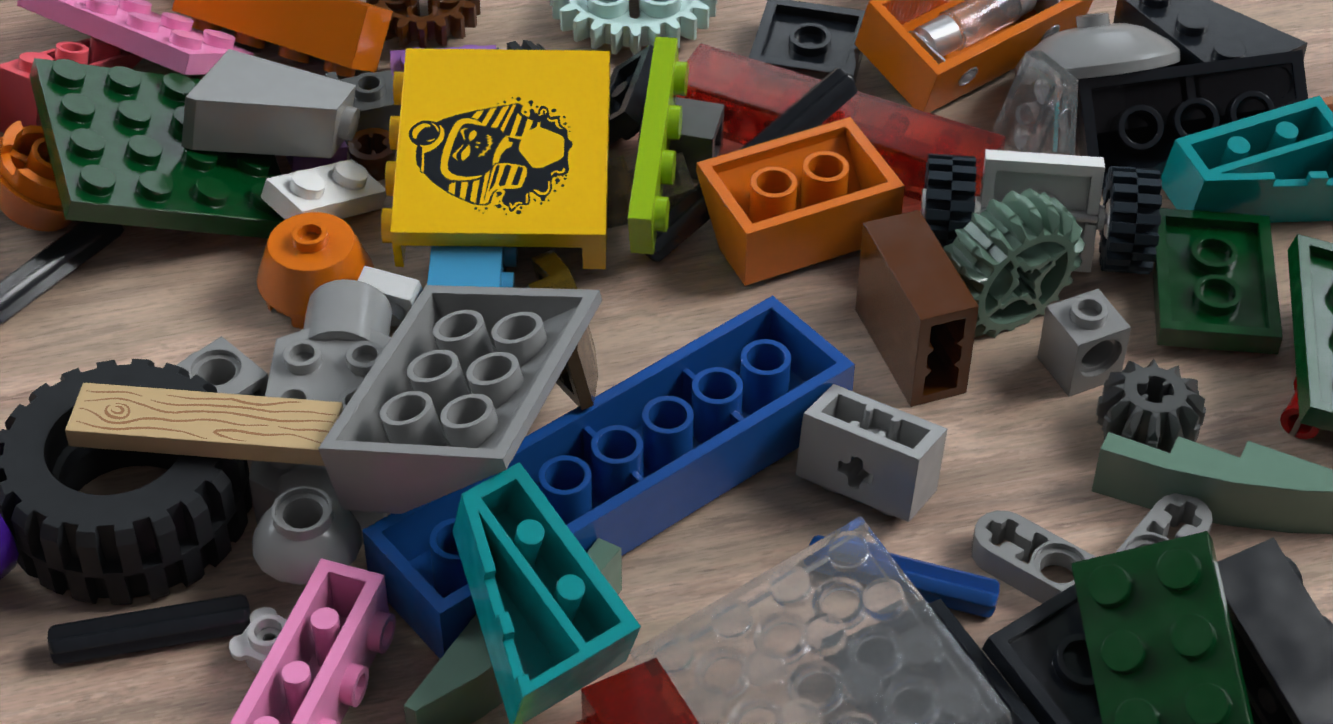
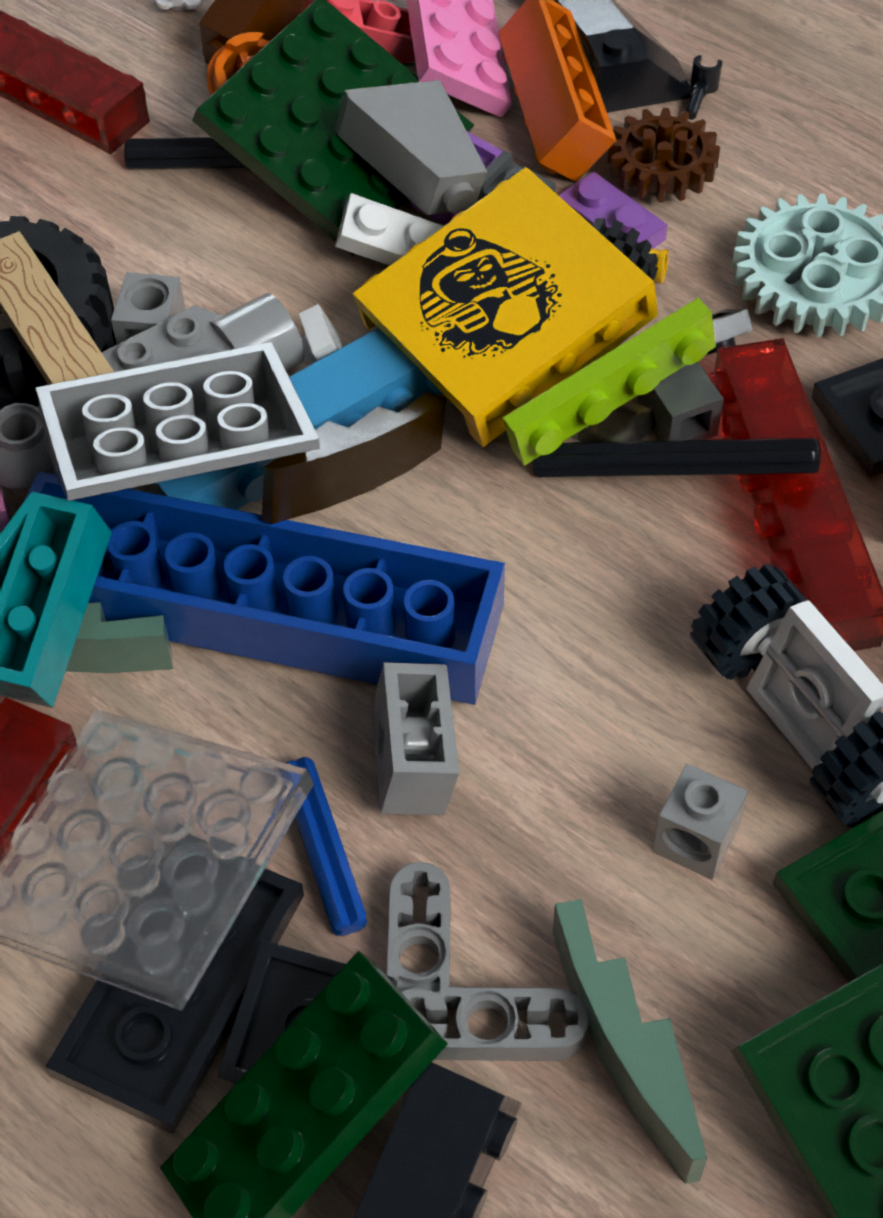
camera: 55 degrees right, 10 degrees up
(305, 255) = (311, 271): orange cone -> none
(797, 198) = (664, 515): orange slope -> none
(915, 308) = (603, 669): reddish brown brick -> none
(1016, 258) = (723, 706): sand green gear -> none
(1151, 405) = (661, 942): dark grey gear -> none

